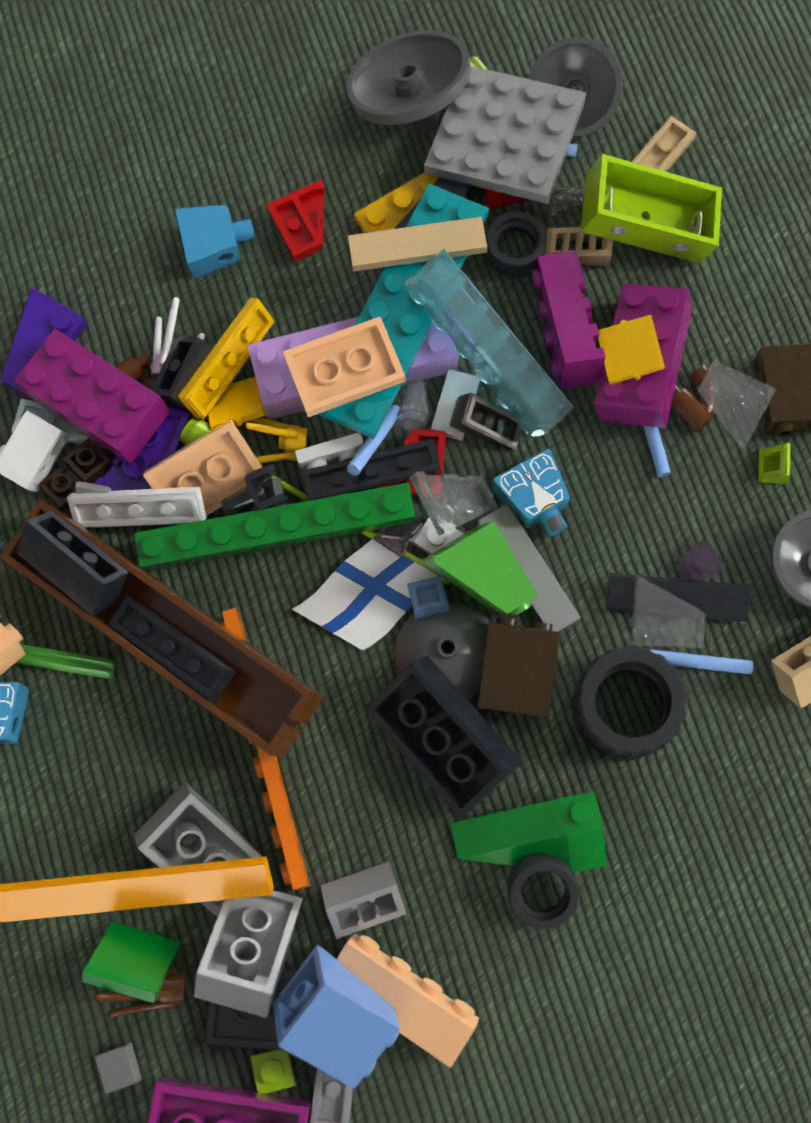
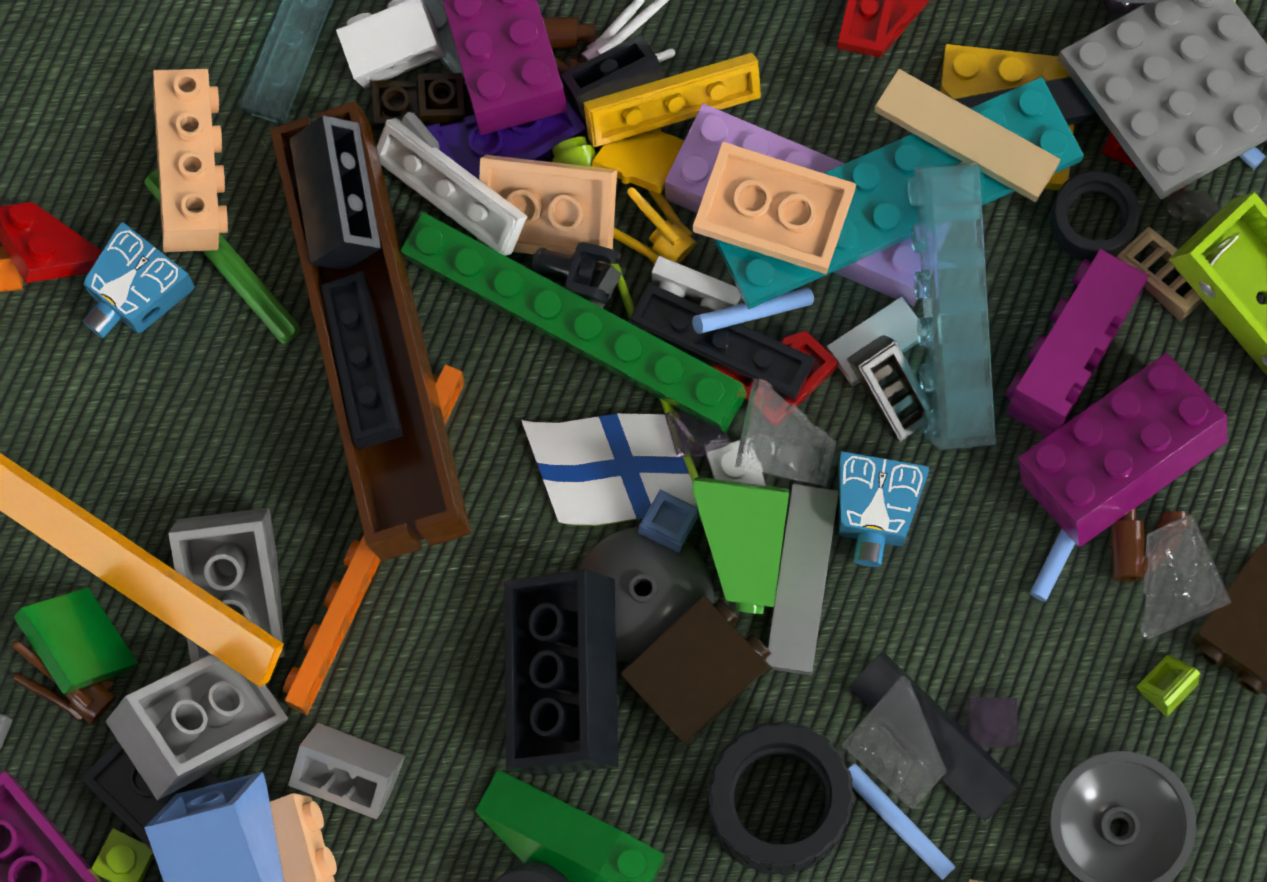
camera: 40 degrees right, 0 degrees up
(414, 407) = (827, 310): clear cone -> none
(631, 349) = (1103, 430): yellow piece -> none

